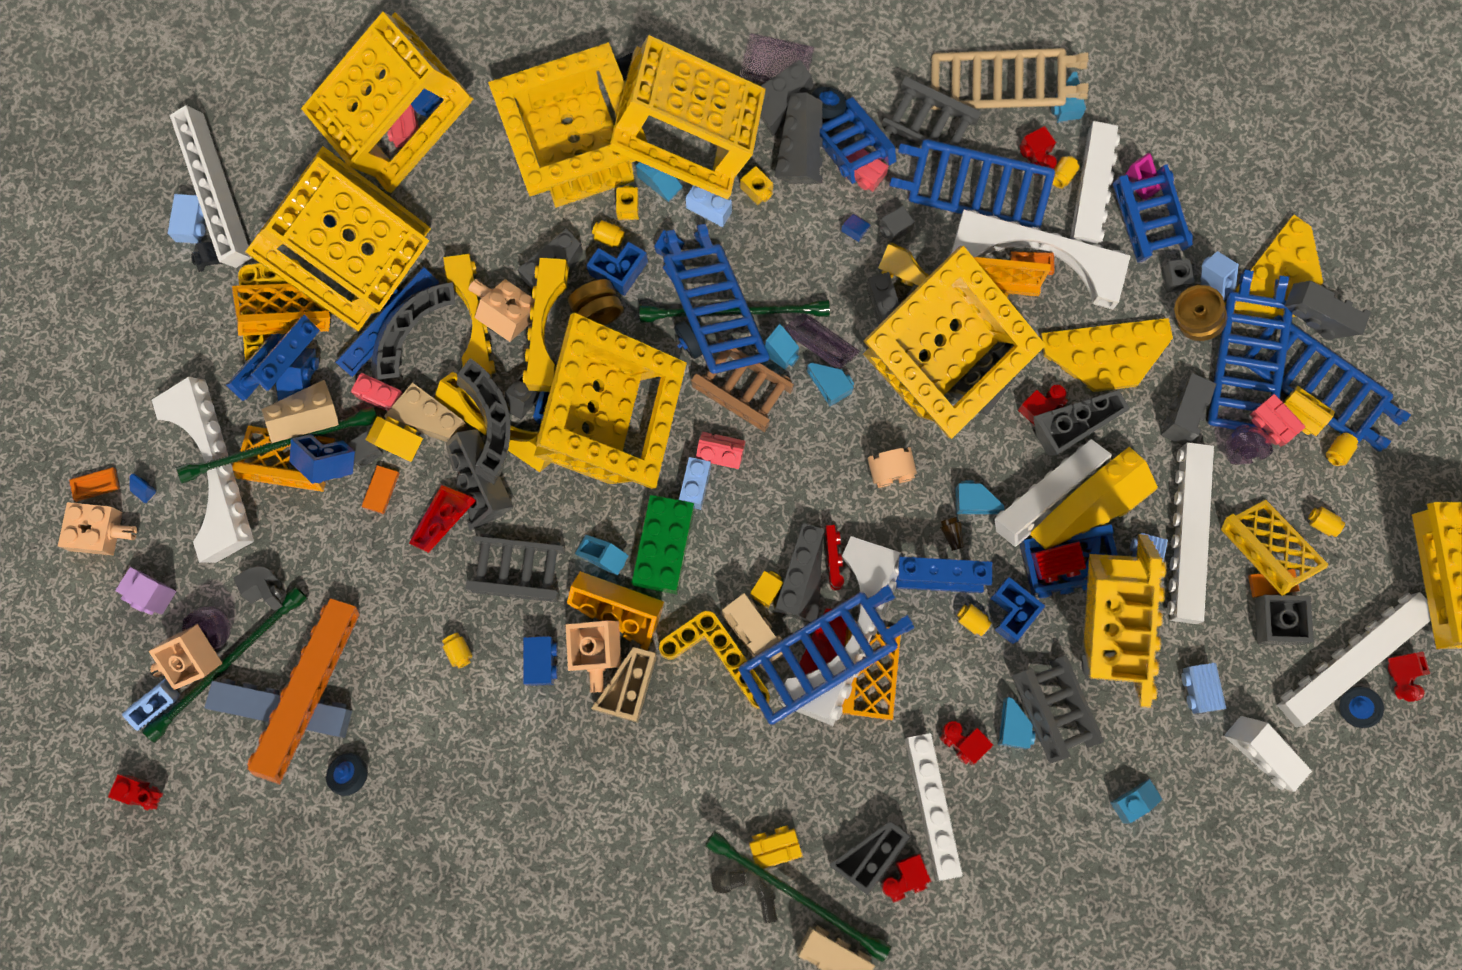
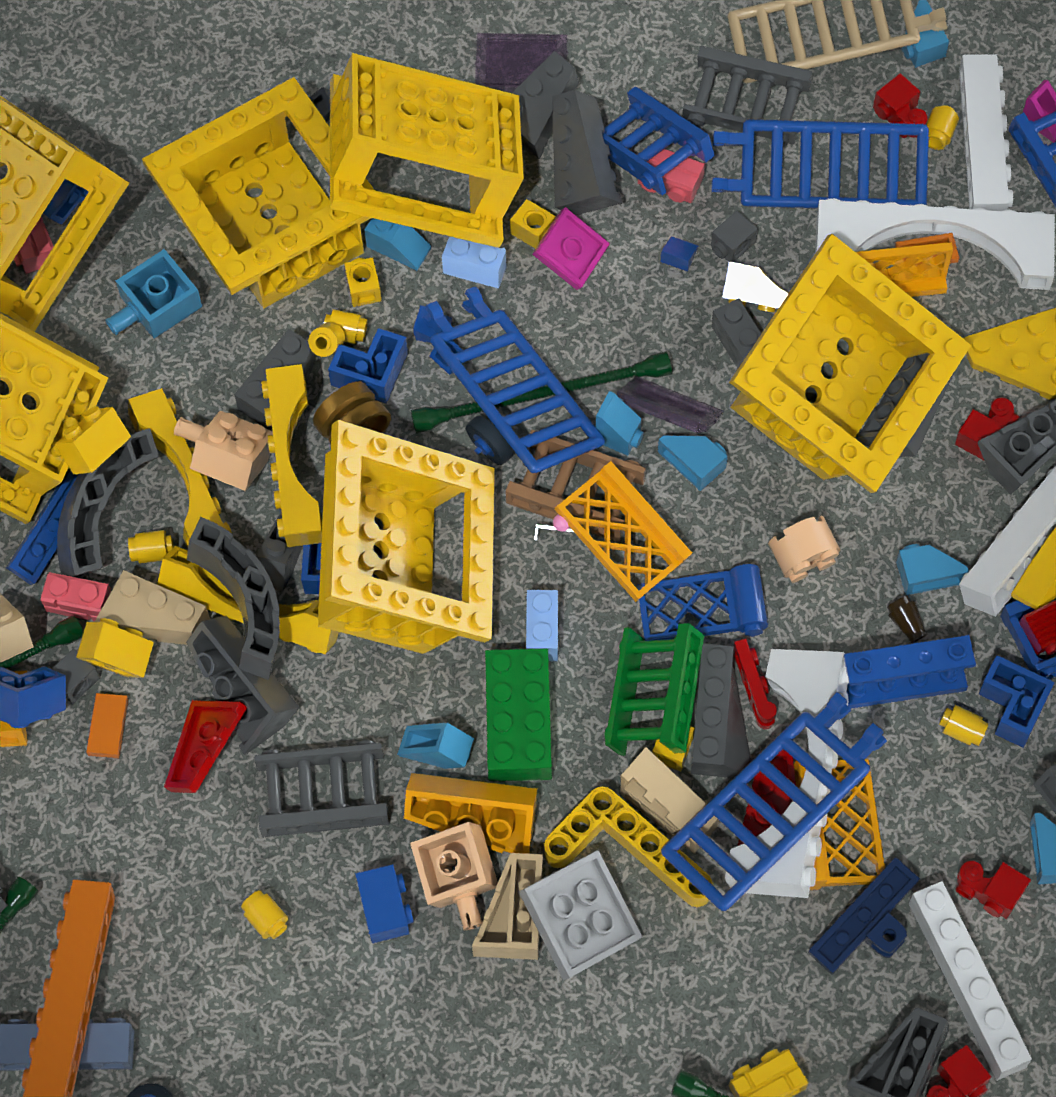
camera: 10 degrees left, 10 degrees down
(407, 285) = (92, 439): none -> yellow brick
(436, 367) = (149, 546): none -> yellow brick
(480, 184) = (155, 295): none -> dark azure brick
(590, 242) = (332, 333): none -> yellow brick
(672, 701) = (580, 915): none -> light grey plate
(720, 450) = (567, 574): coral brick -> none
(725, 413) = (559, 524): none -> piece
(779, 209) = (571, 248): none -> dark pink plate
(780, 553) = (679, 698): none -> green fence
(782, 419) = (644, 521): none -> light orange fence
(832, 101) = (610, 96): black wheel -> none
(840, 499) = (743, 596): none -> blue piece
(872, 746) = (868, 920): none -> dark blue plate

